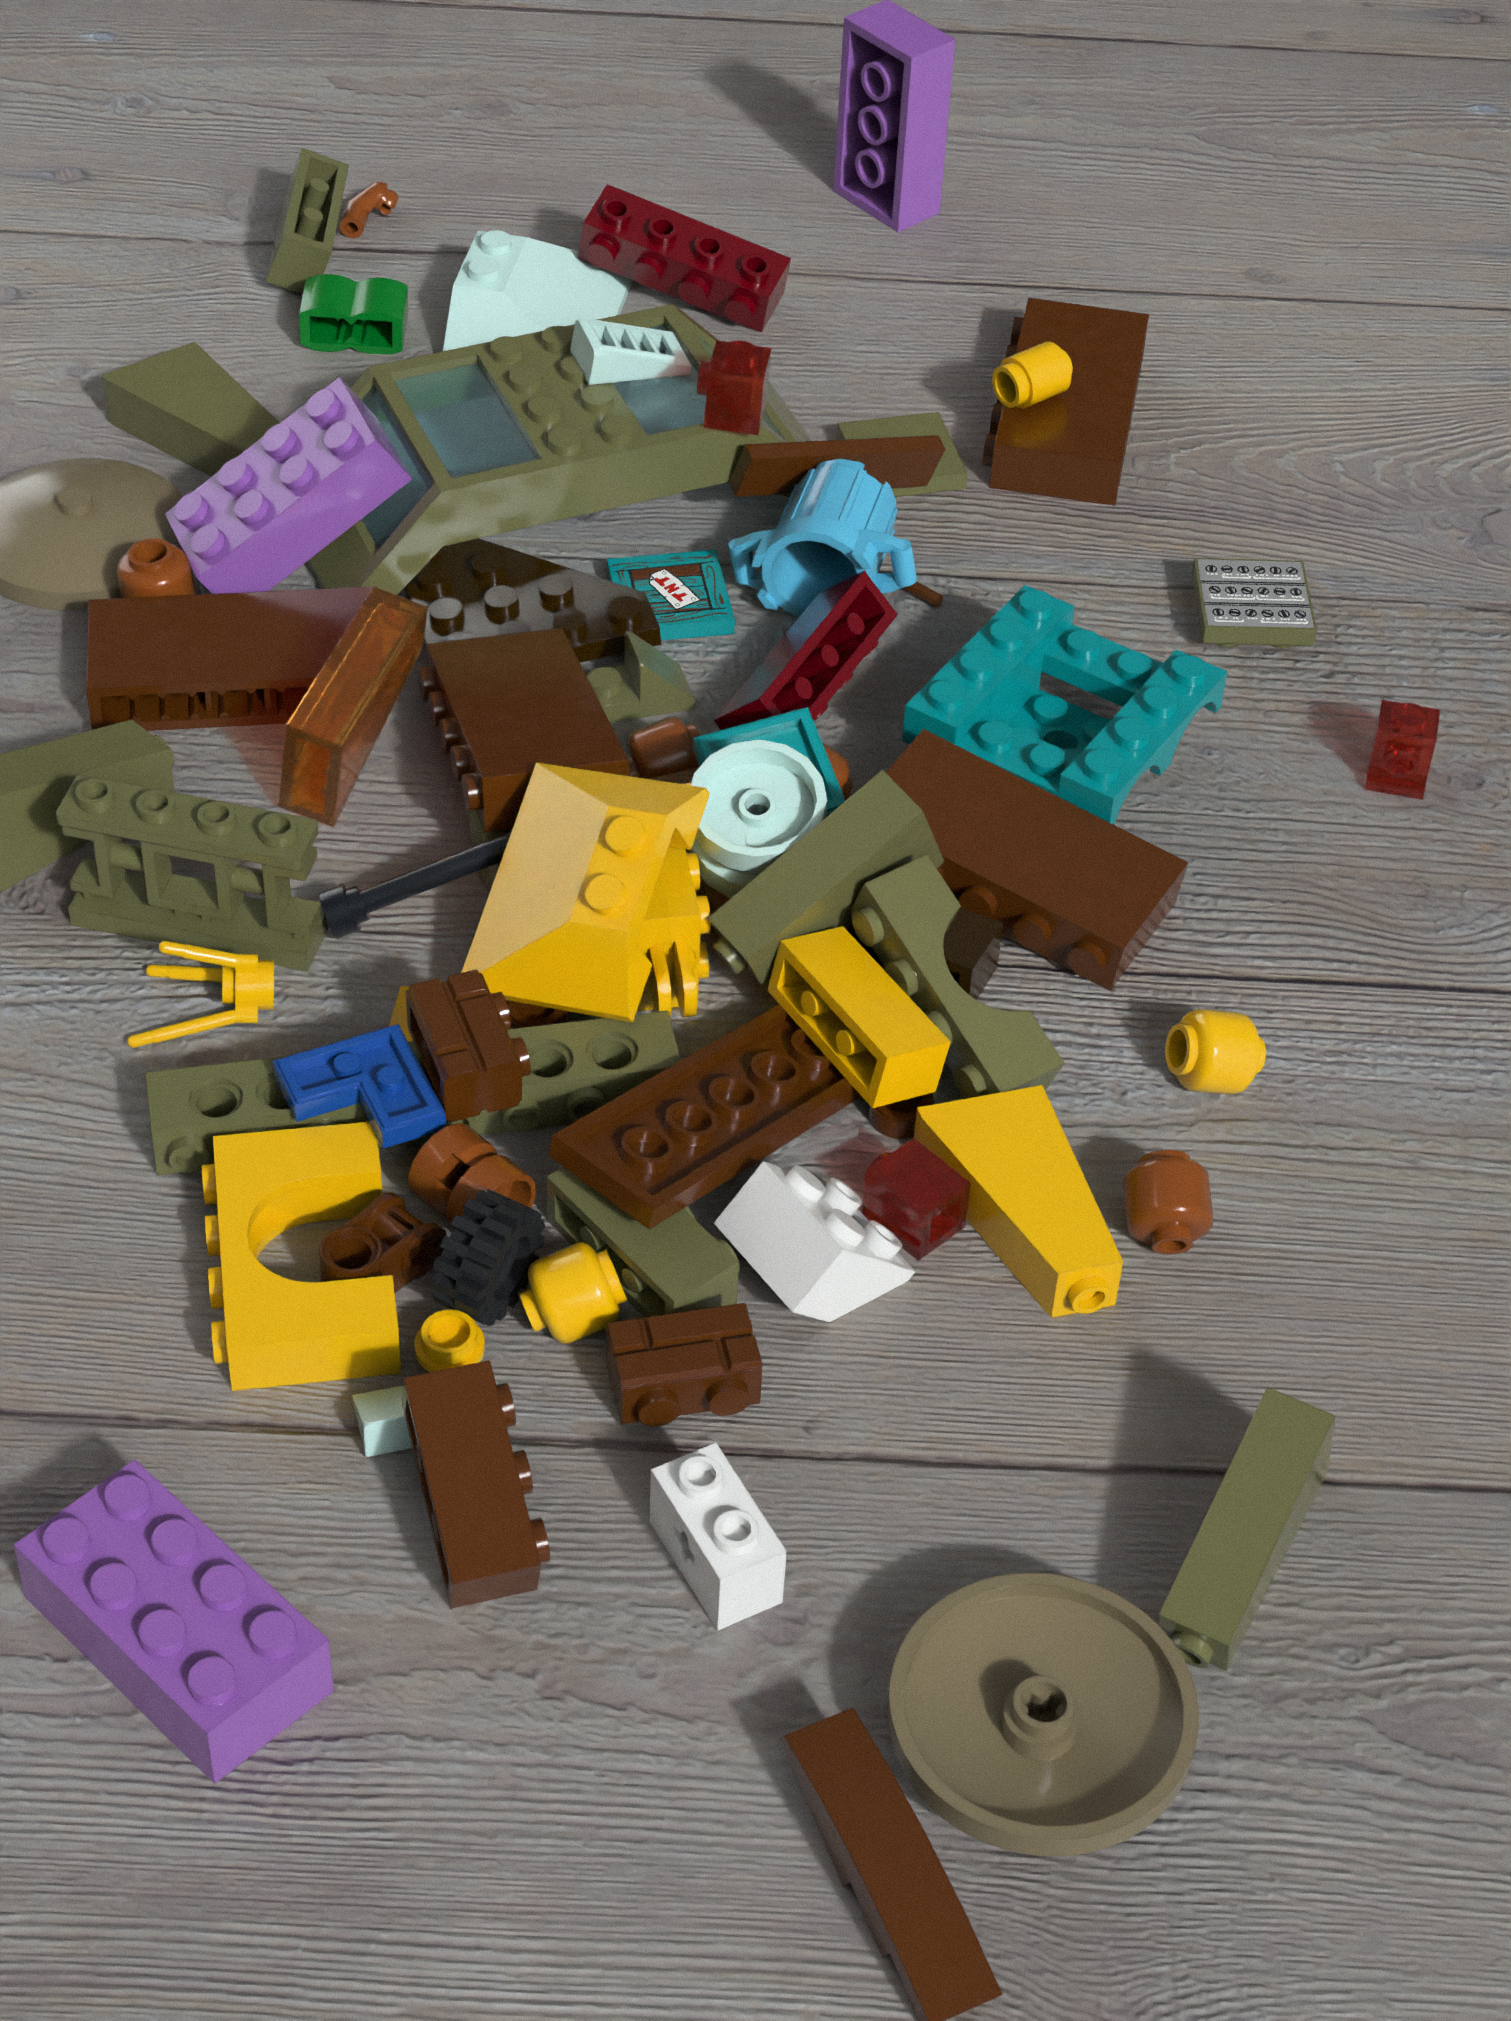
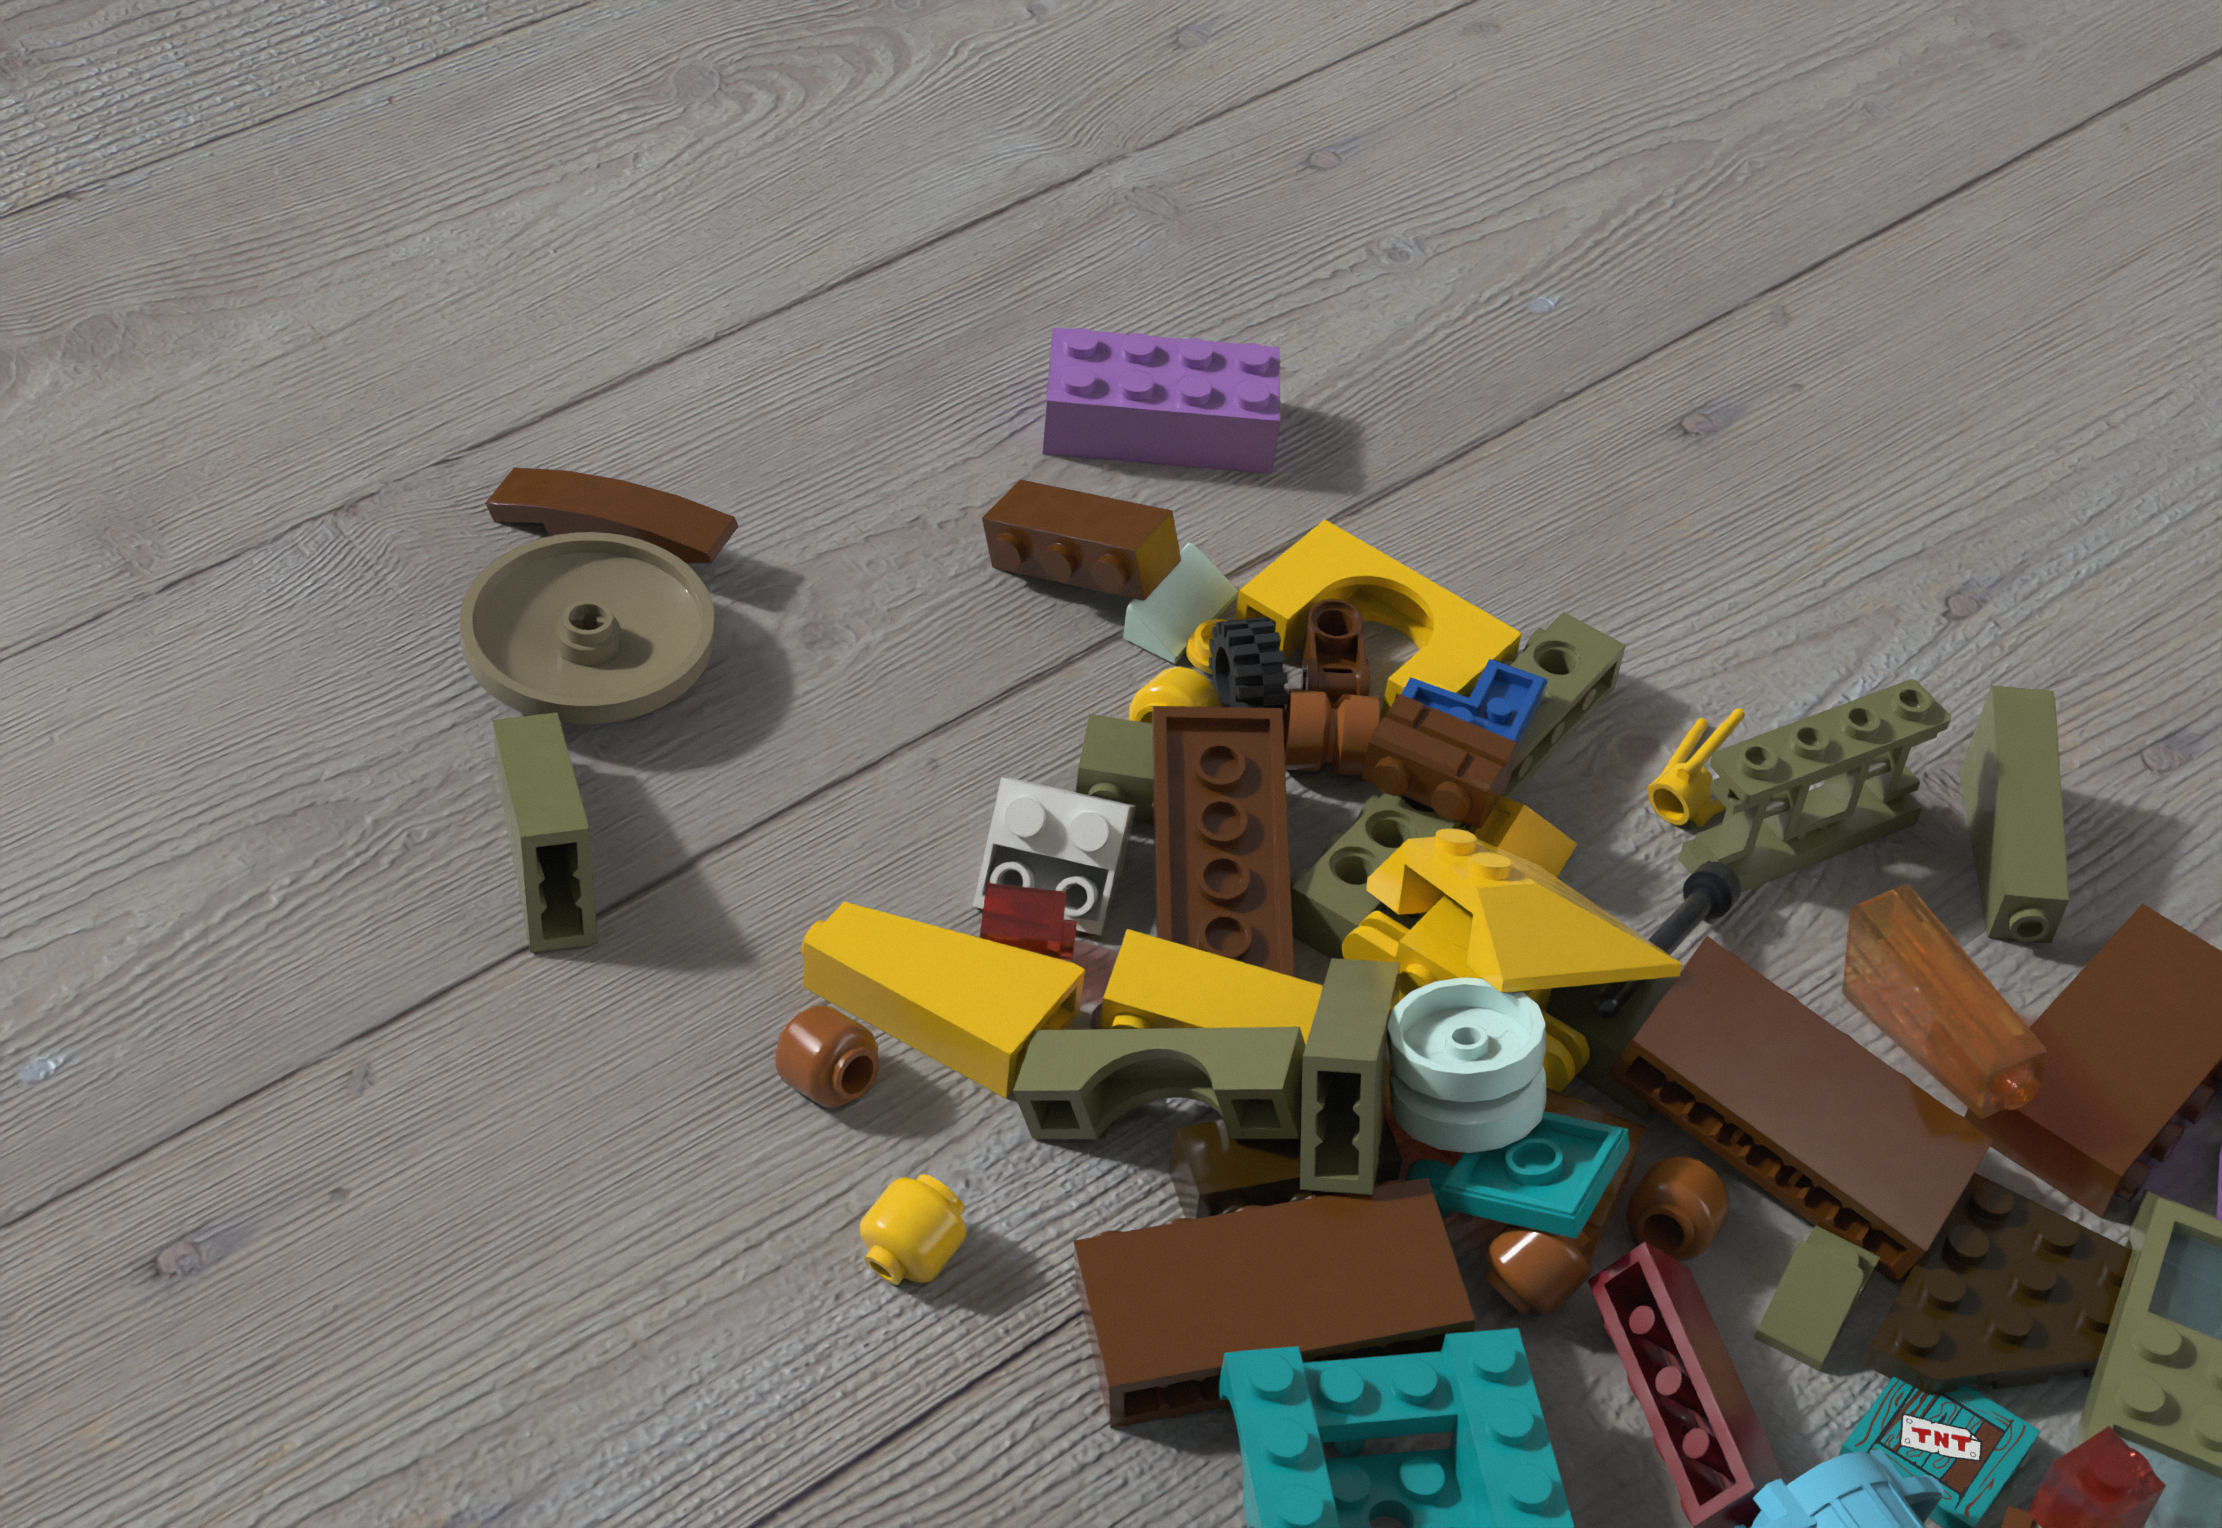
camera: 135 degrees right, 0 degrees up
(683, 1364) = (1046, 713): reddish brown brick -> none
(717, 1536) = (903, 618): white brick -> none

